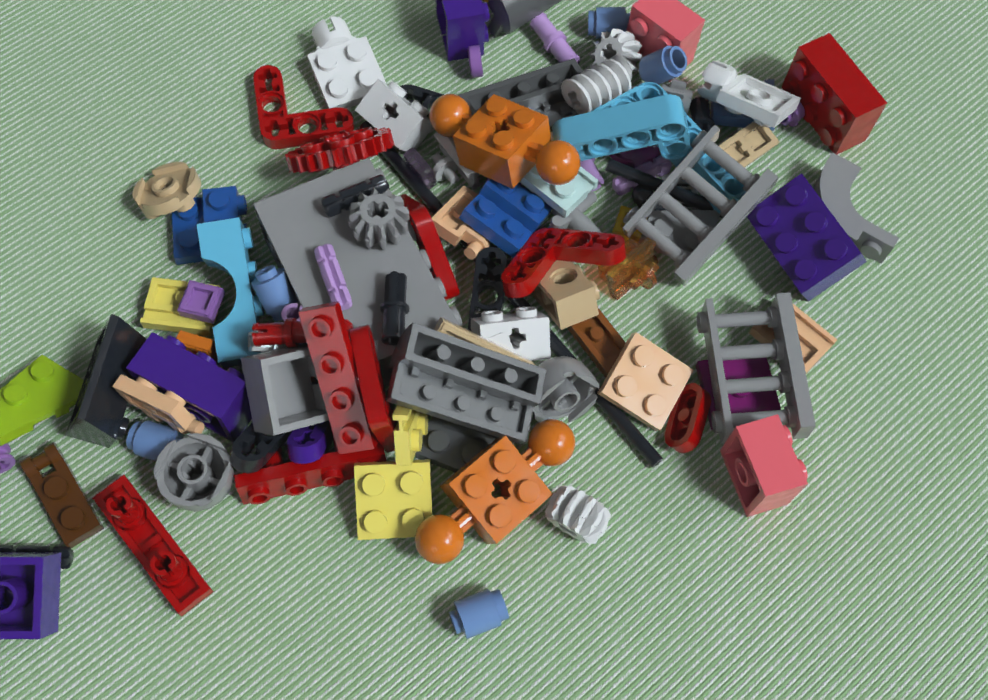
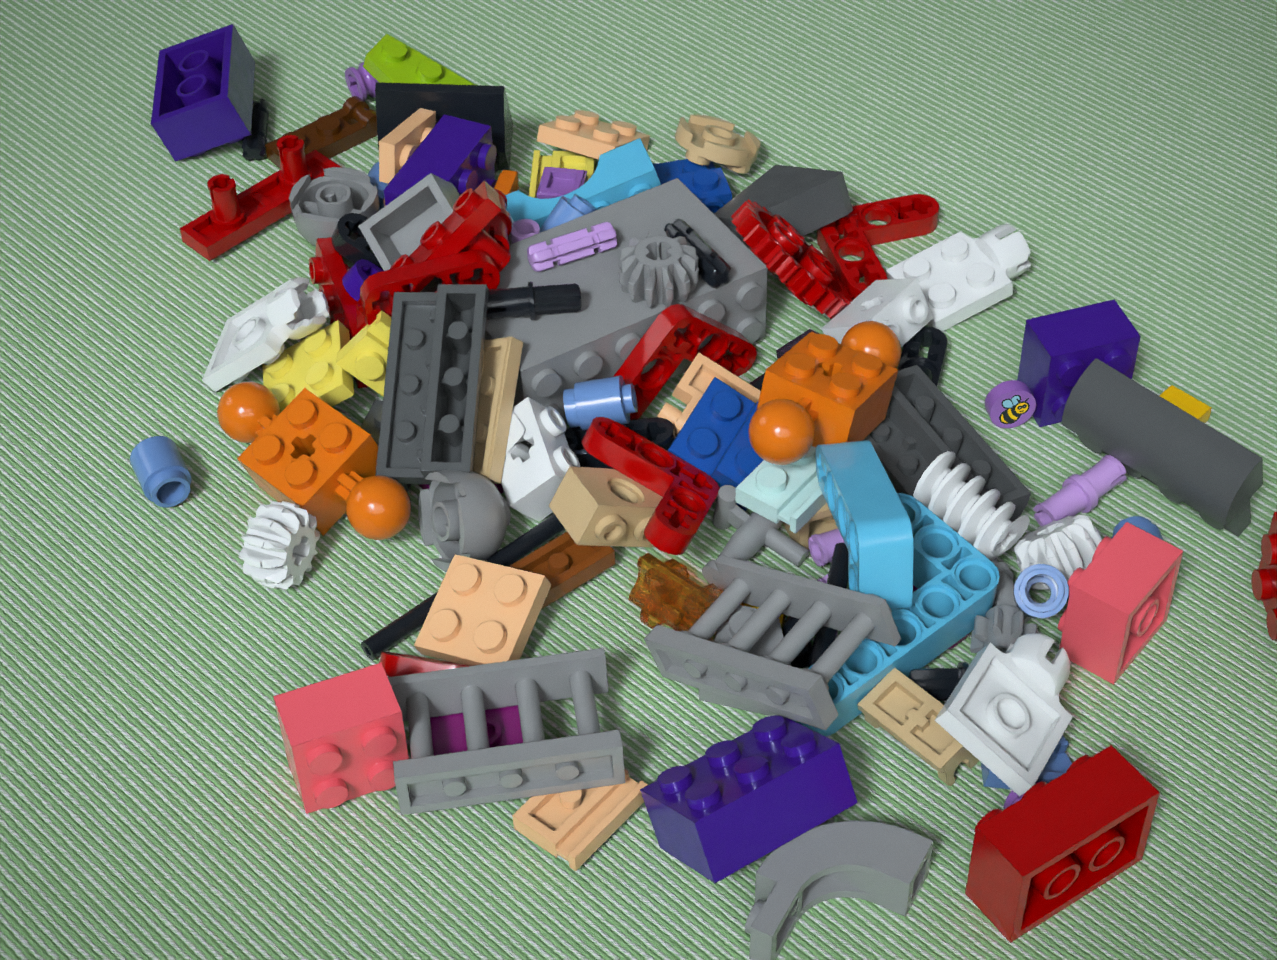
camera: 90 degrees right, 20 degrees down
(136, 276) = (588, 135): none -> light nougat plate
(258, 153) = (798, 194): none -> dark grey slope
(344, 531) = (261, 329): none -> white plate
(467, 287) = (599, 398): none -> medium blue brick

